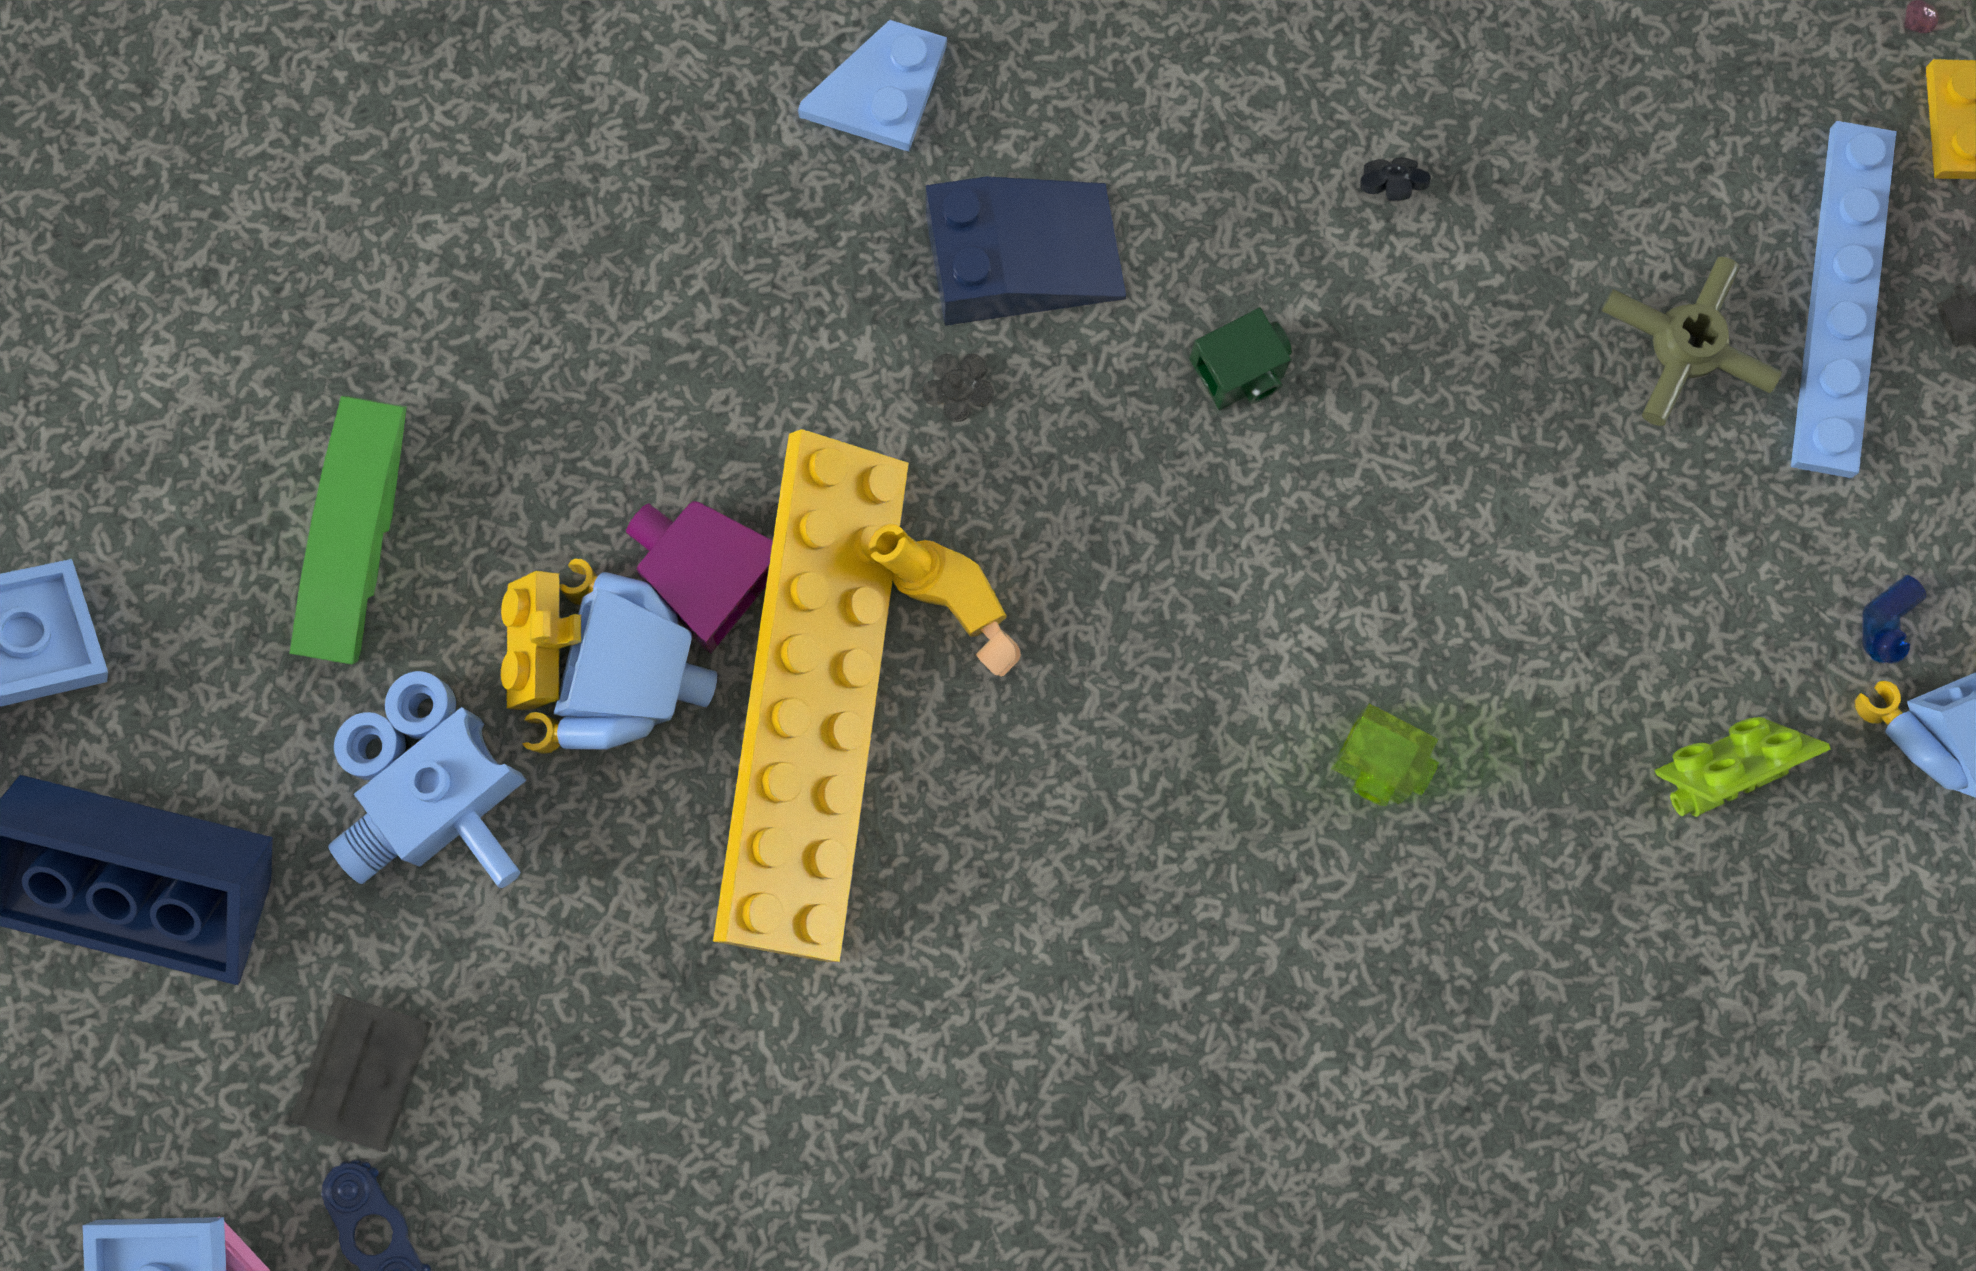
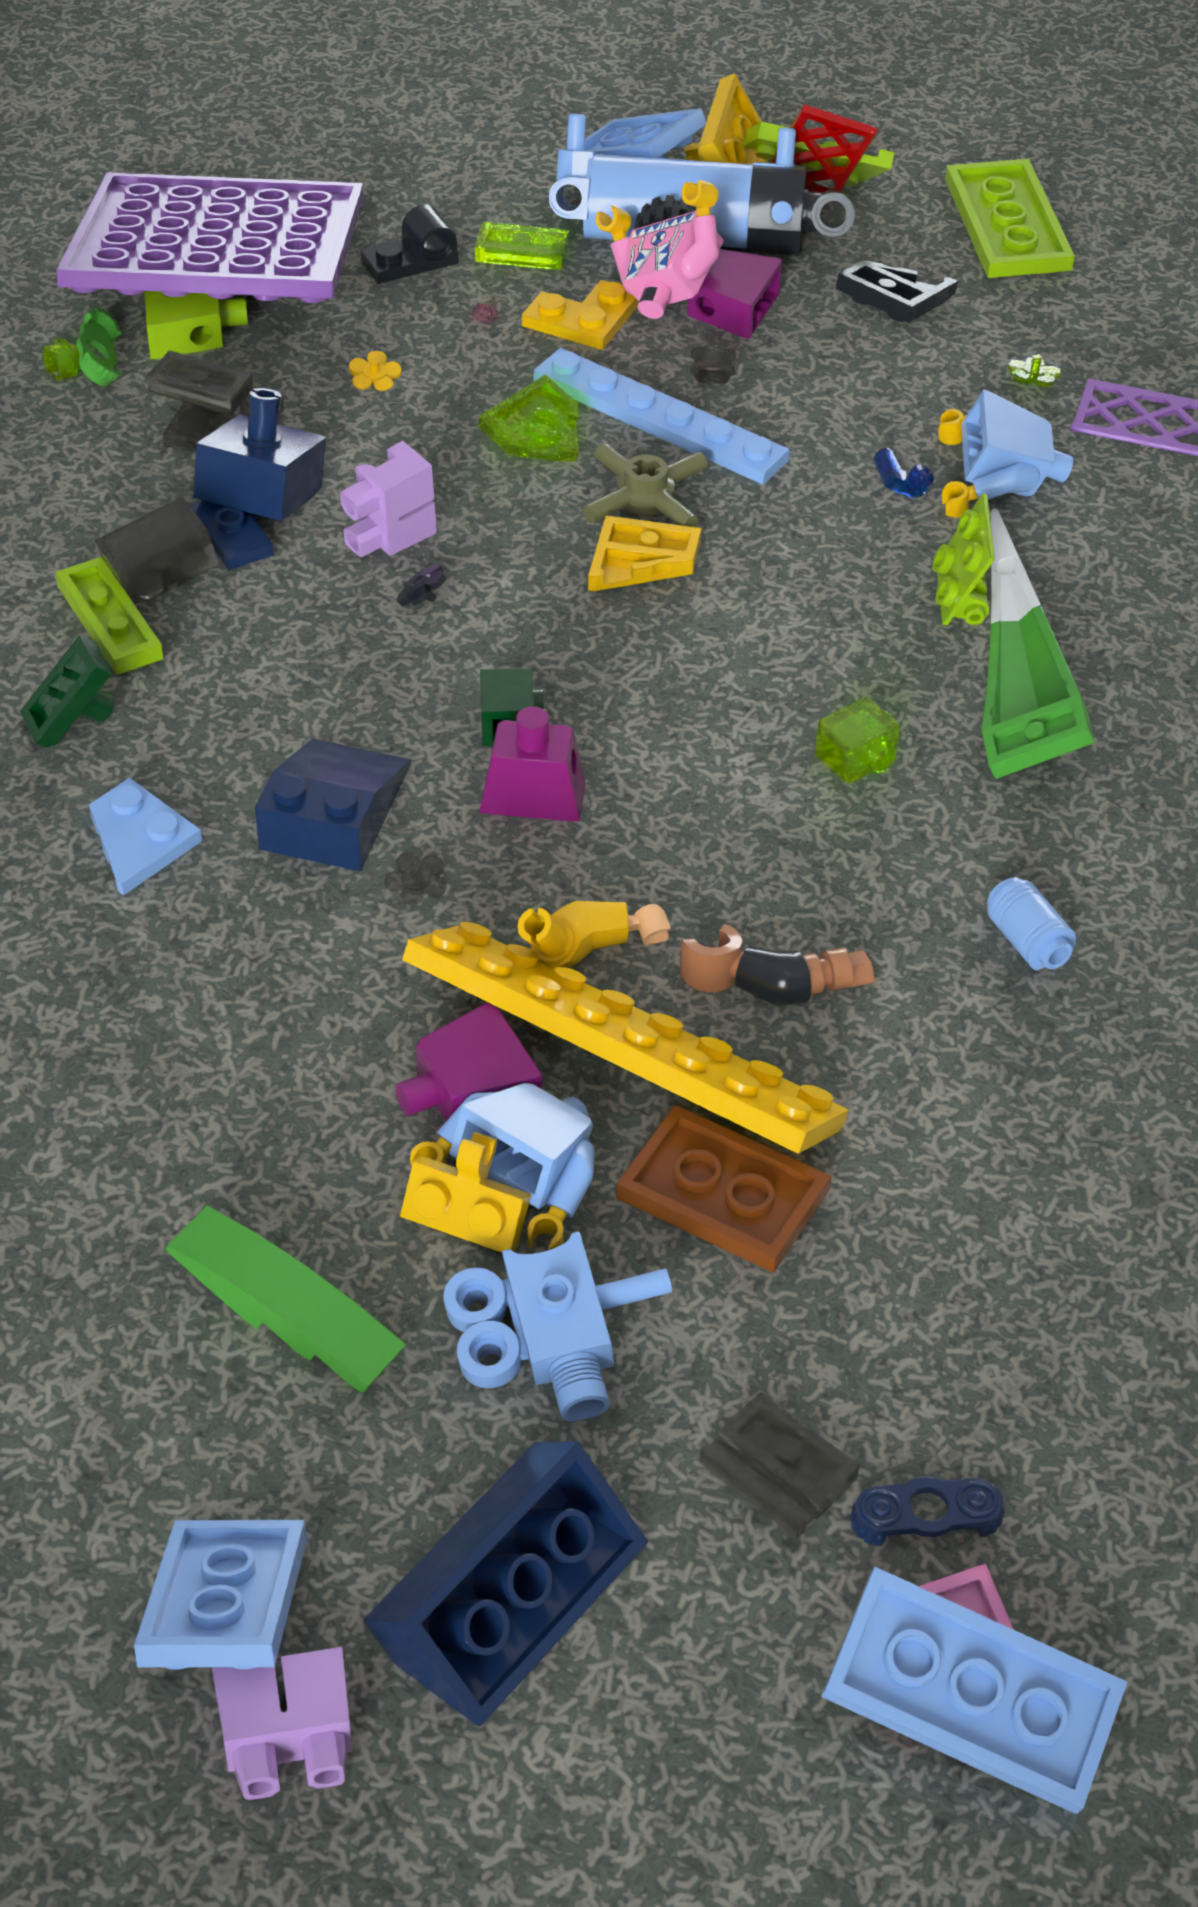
camera: 60 degrees left, 30 degrees down
(667, 880) = (723, 1188): none -> dark orange plate
(985, 819) = (770, 974): none -> nougat piece
(1142, 433) = (534, 770): none -> magenta torso
(1194, 1054) = (1031, 924): none -> light blue head
(1479, 83) = (391, 503): none -> lavender hips
(1560, 923) = (1030, 693): none -> bright green plate
(1578, 386) = (642, 552): none -> yellow wing
(1737, 168) = (535, 423): none -> clear neon green plate

